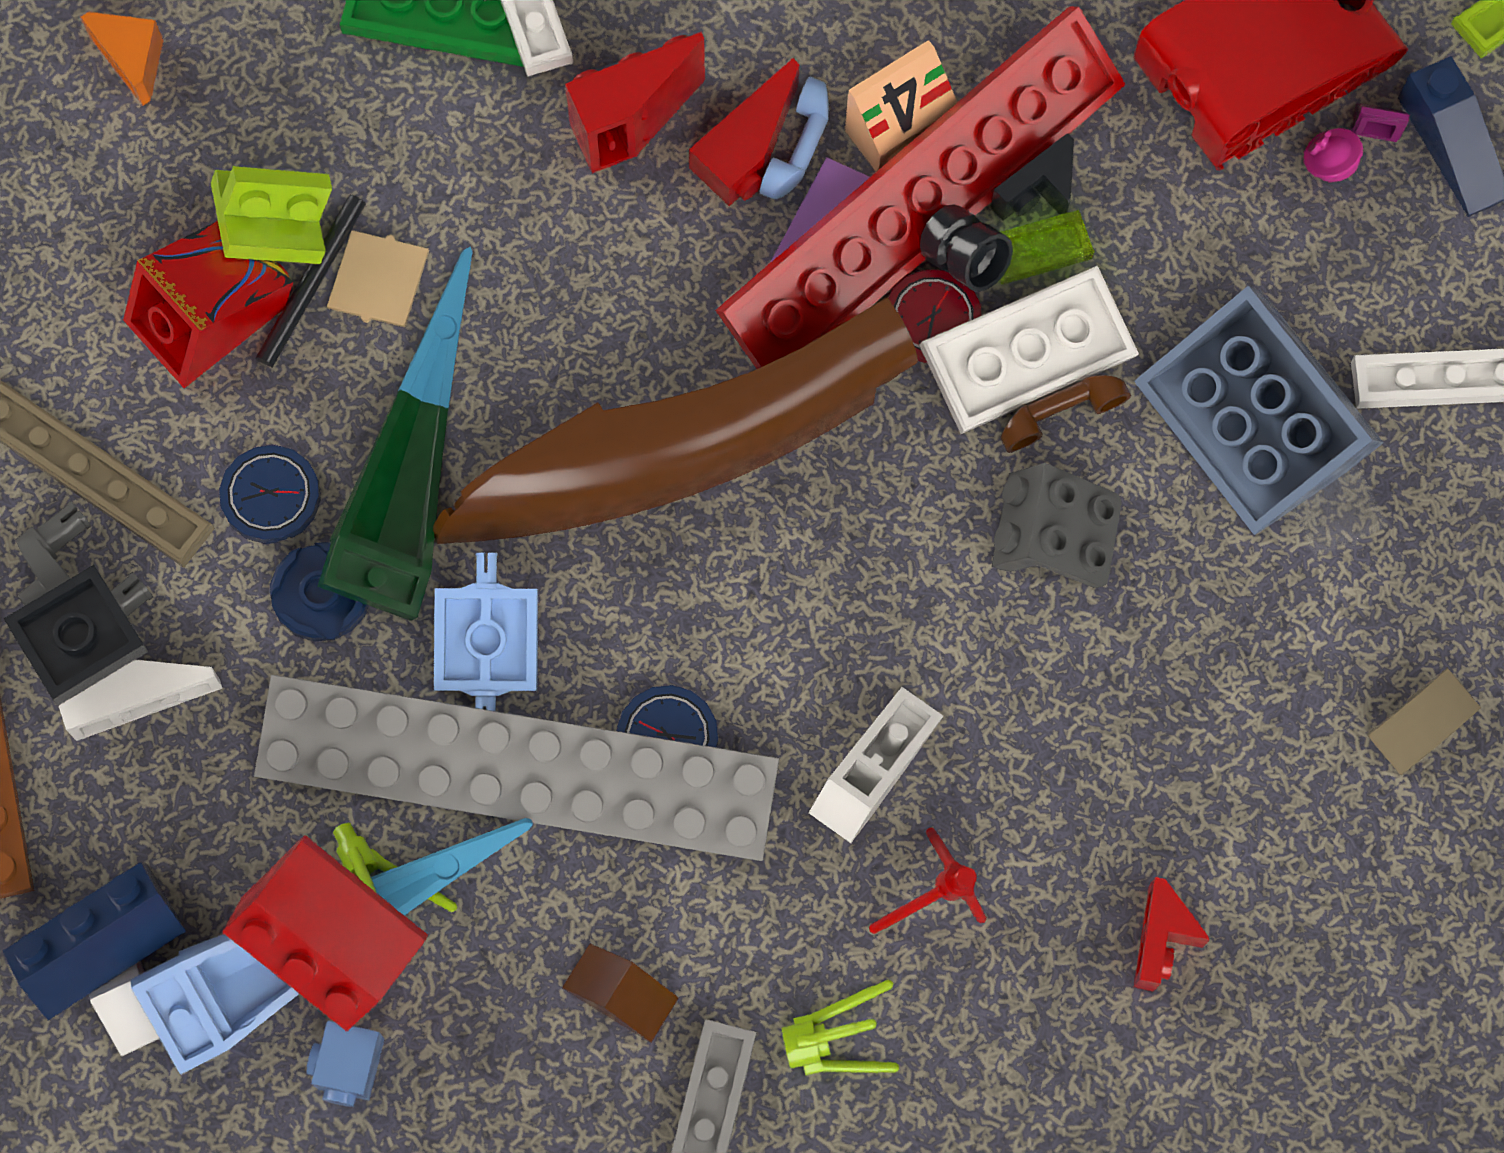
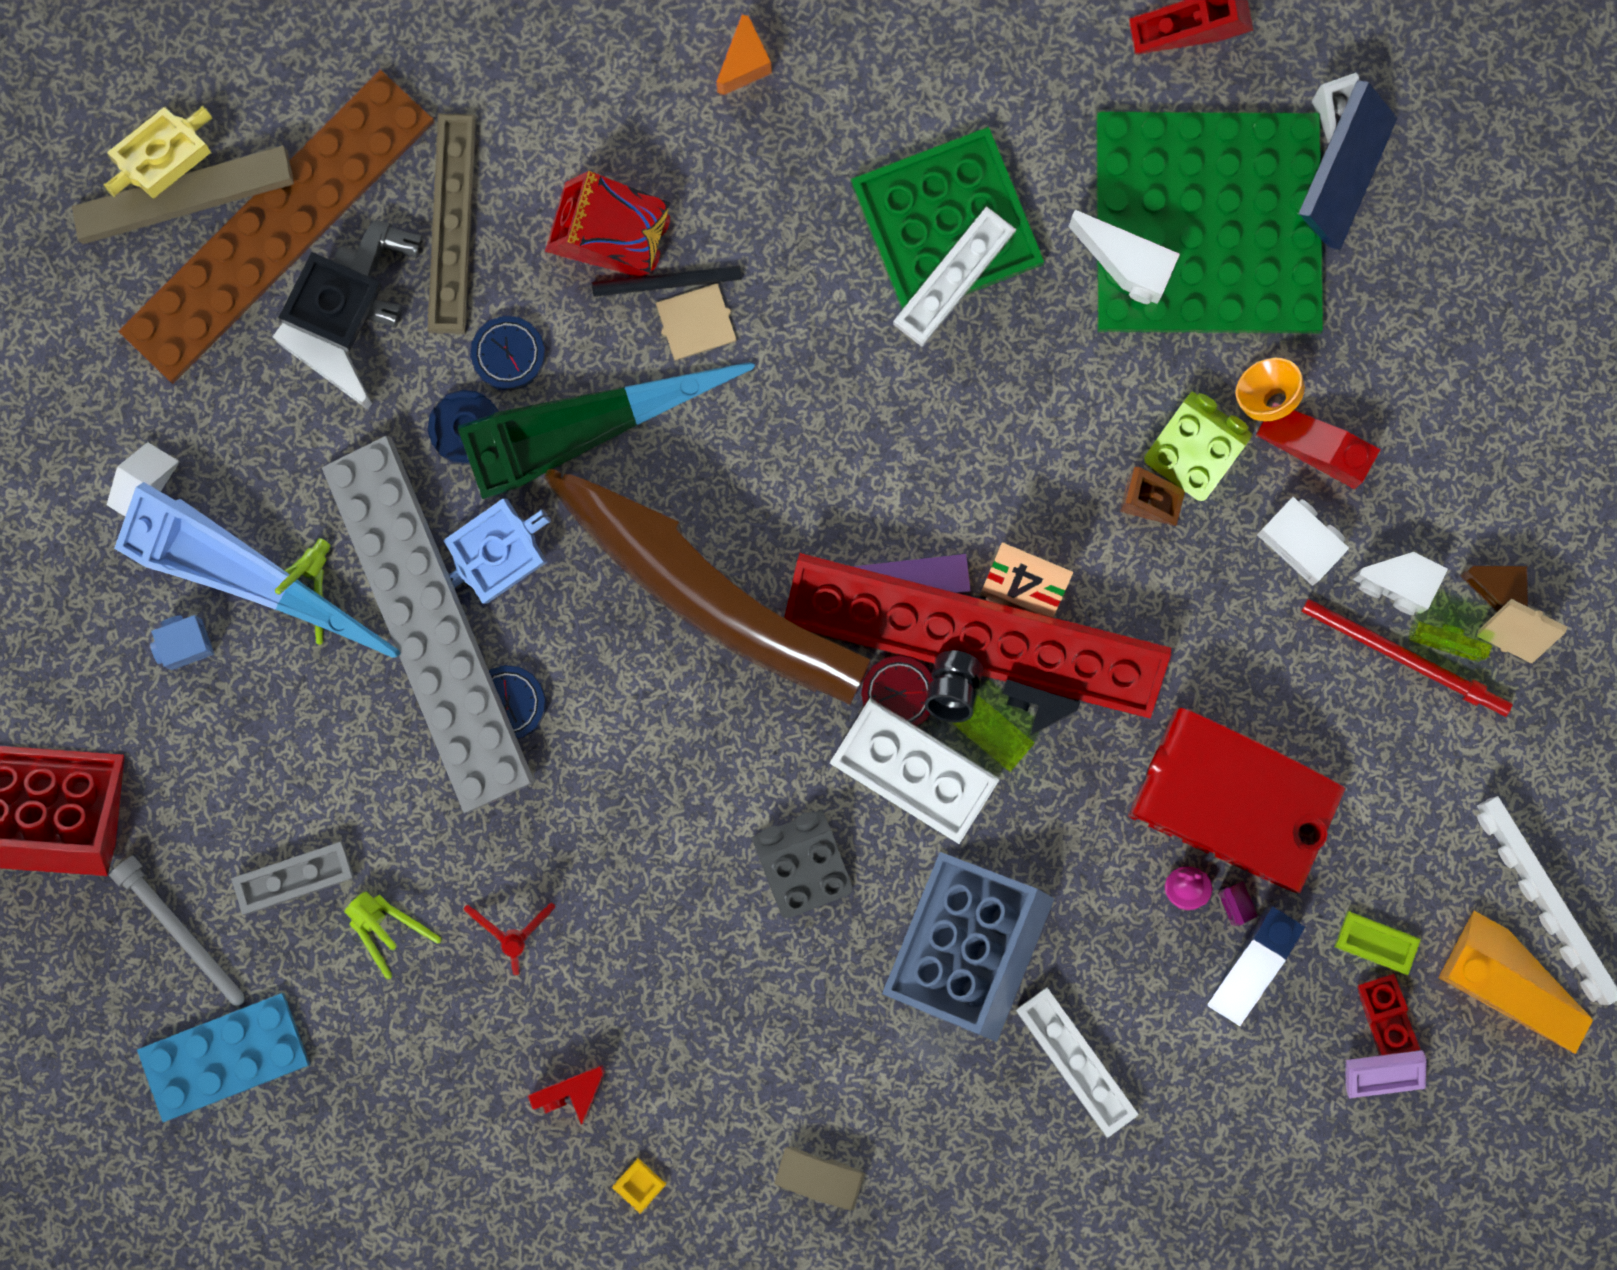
camera: 60 degrees right, 10 degrees up
(93, 941) = (156, 442): dark blue slope -> none
(271, 213) = (685, 227): lime bracket -> none
(324, 933) = (236, 579): red slope -> none
(621, 991) = (327, 778): reddish brown slope -> none
(629, 103) = (910, 405): red slope -> none
(739, 147) = (938, 494): red slope -> none
(783, 176) = (934, 535): light blue bar -> none
(875, 764) = (570, 845): white slope -> none
(1102, 392) = (914, 834): reddish brown bar -> none
(1313, 927) = (639, 1185): none -> yellow tile

